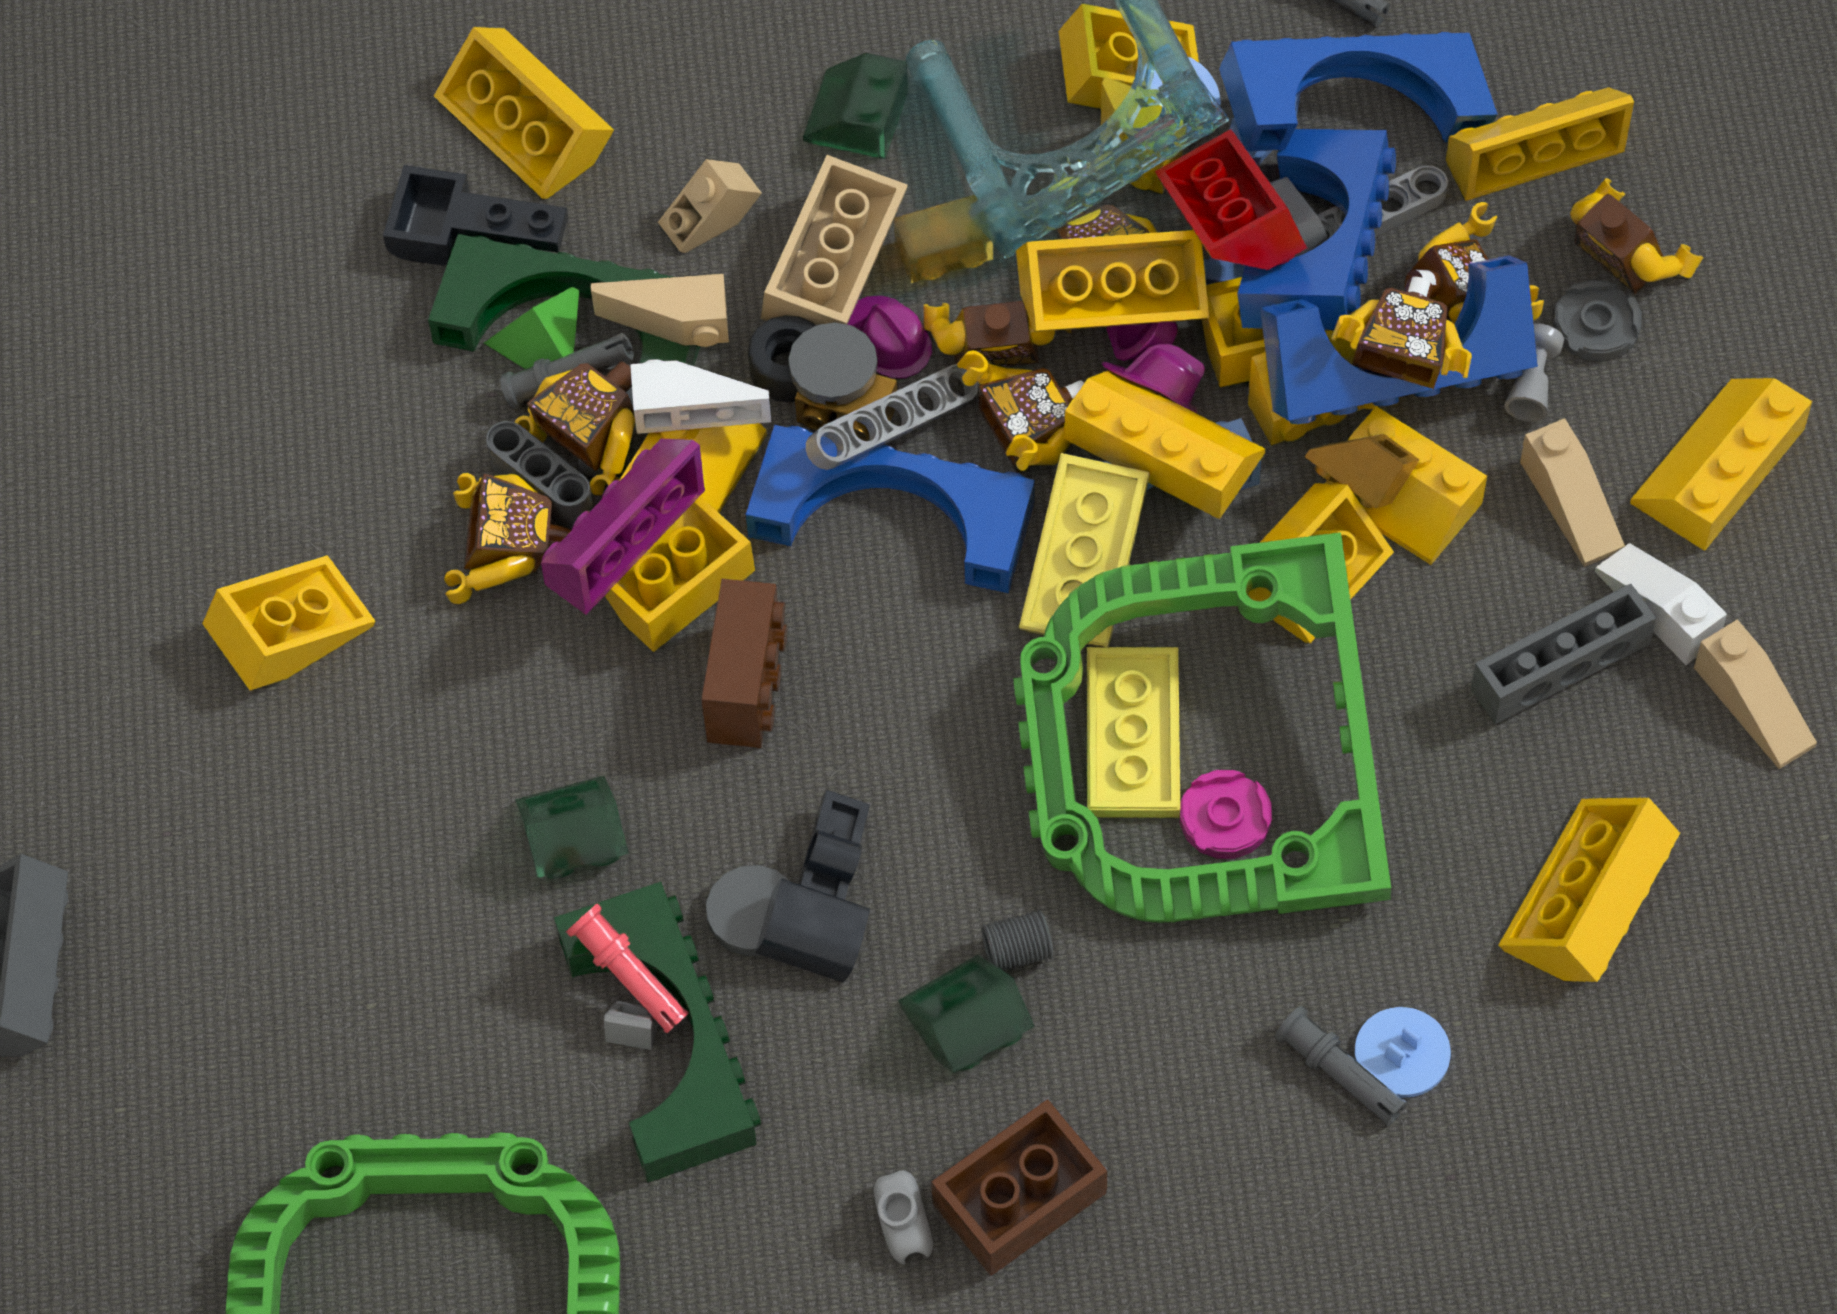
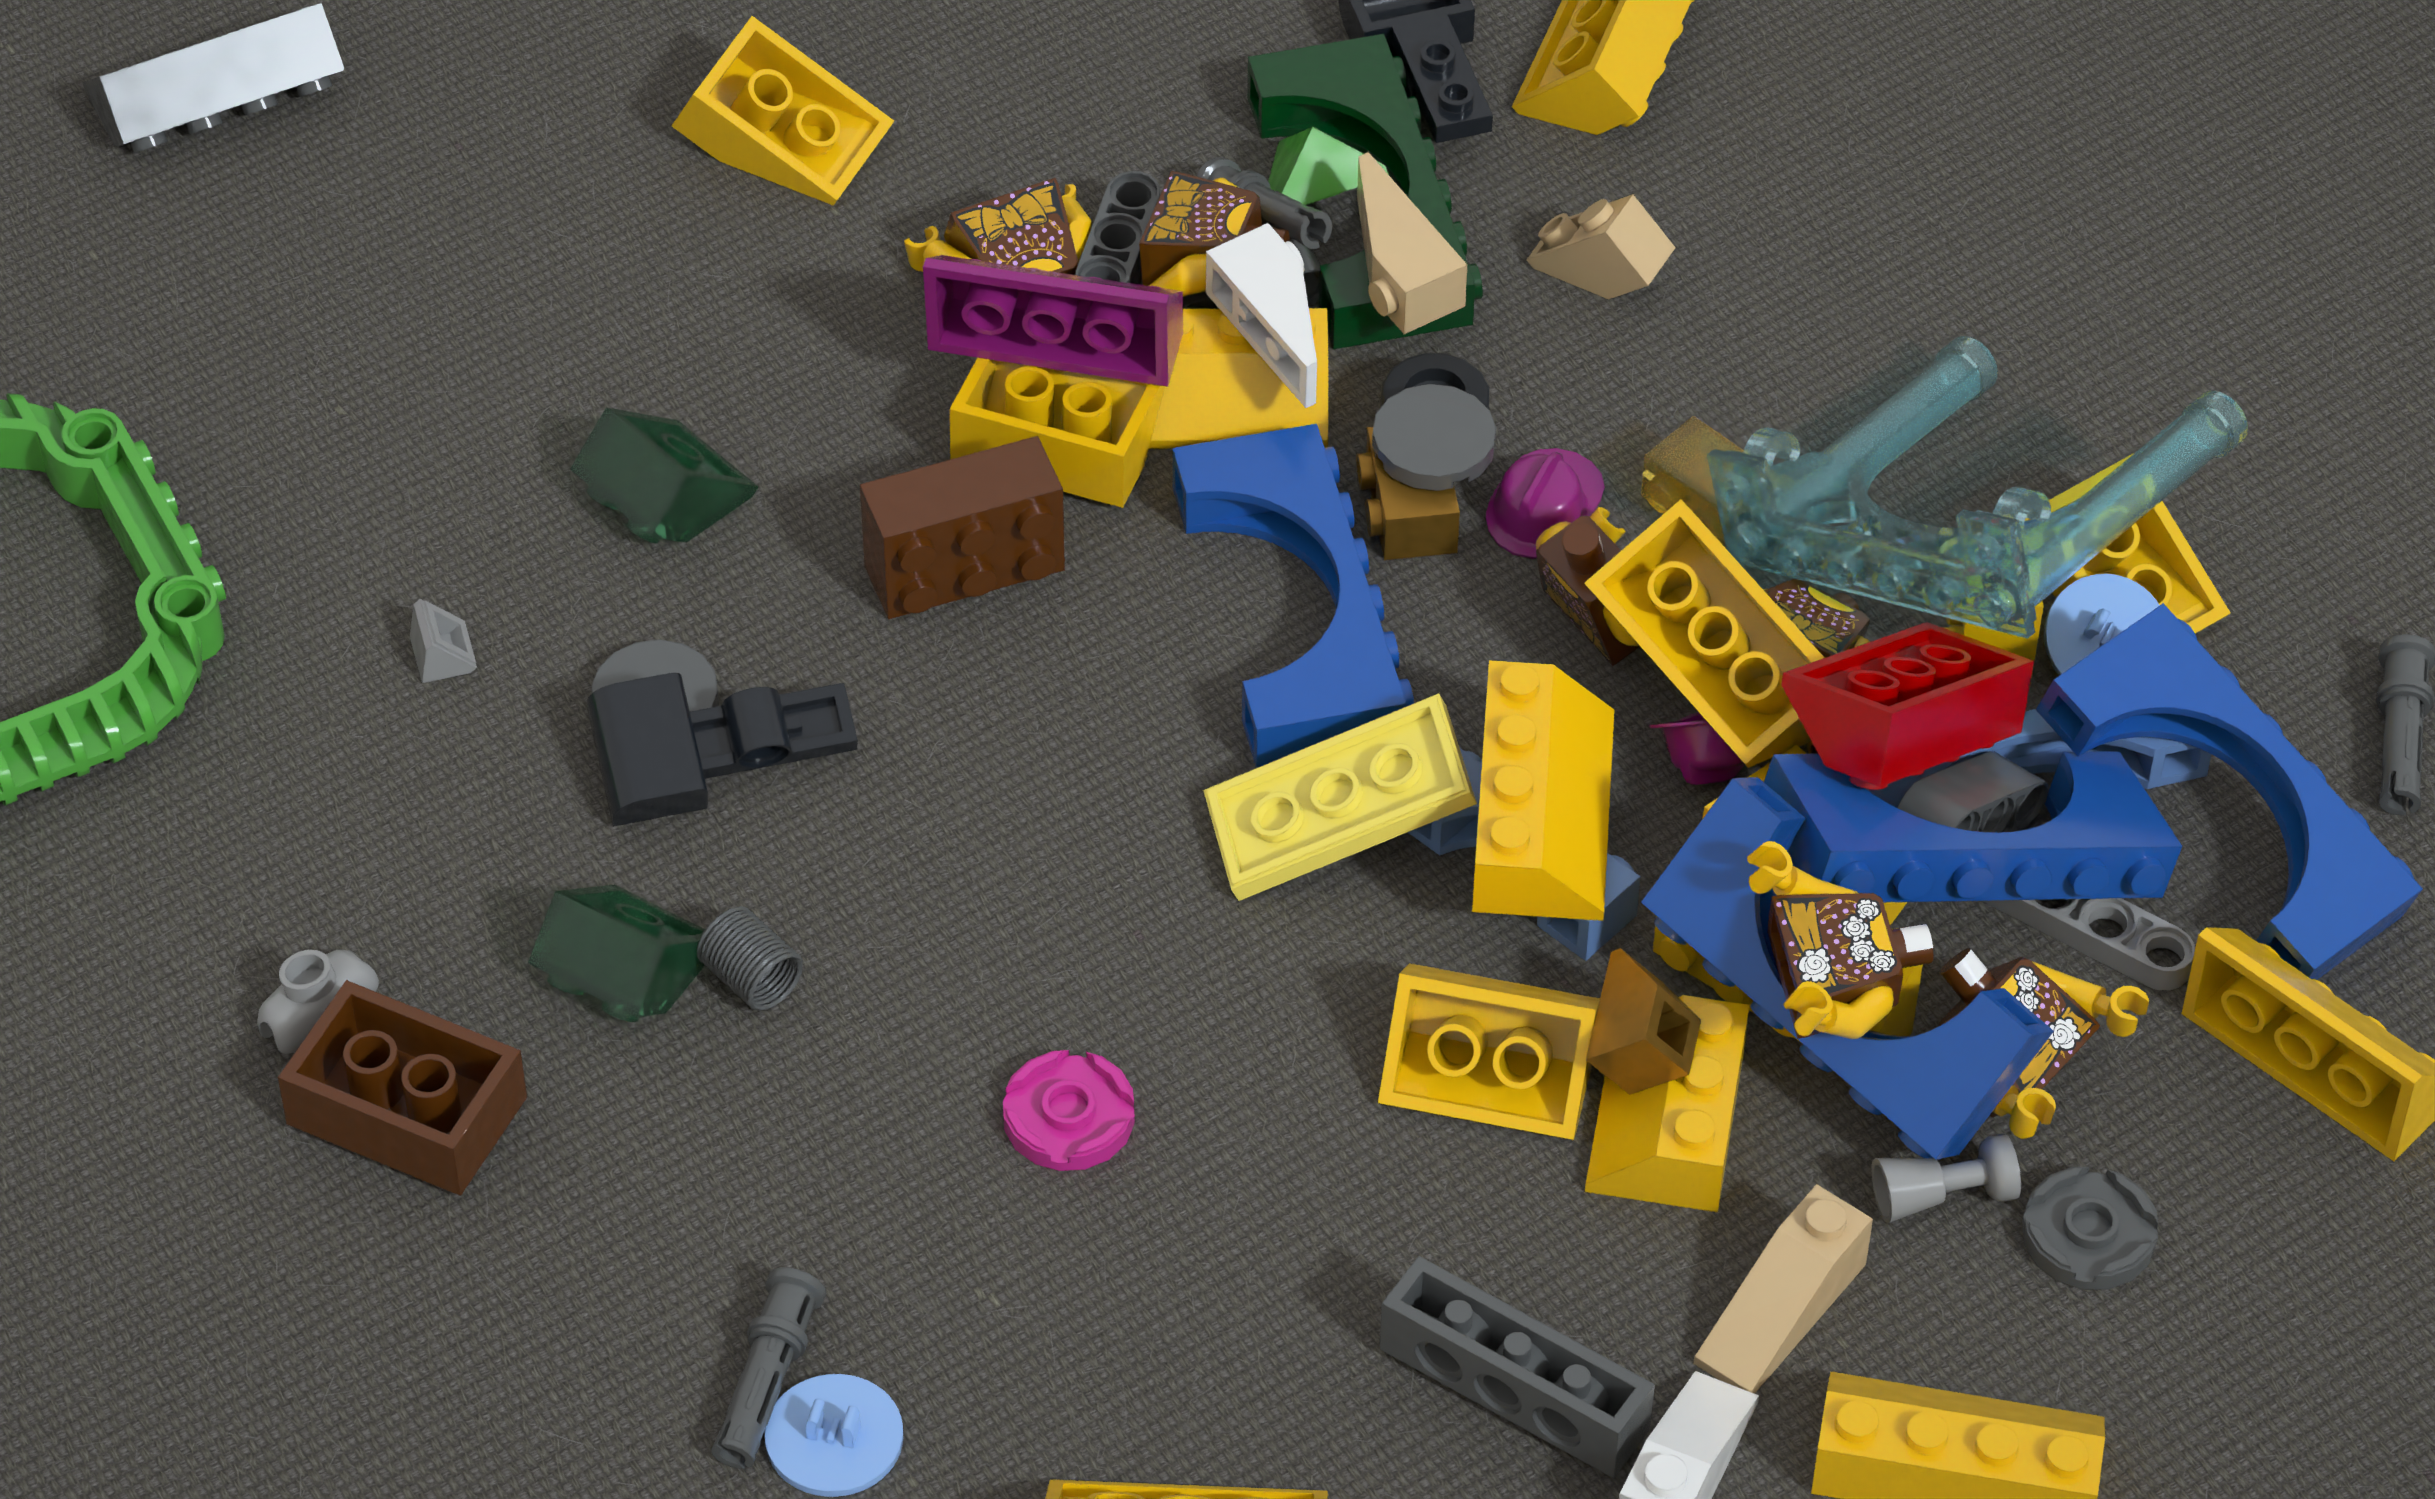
camera: 60 degrees right, 10 degrees down
(612, 951) = (488, 560): coral pin -> none
(706, 1110) = (365, 752): dark green arch -> none
(833, 244) = (1610, 368): tan slope -> none
(859, 105) = (1854, 339): clear green slope -> none
(878, 425) = (1431, 532): light grey beam -> none
(1021, 409) = (1513, 631): torso -> none
(1133, 732) = (1130, 967): light yellow tile -> none
(1166, 371) = (1647, 773): magenta piece -> none
(1307, 586) = (1075, 1235): bright green arch -> none
(1625, 242) = (2213, 1191): torso -> none

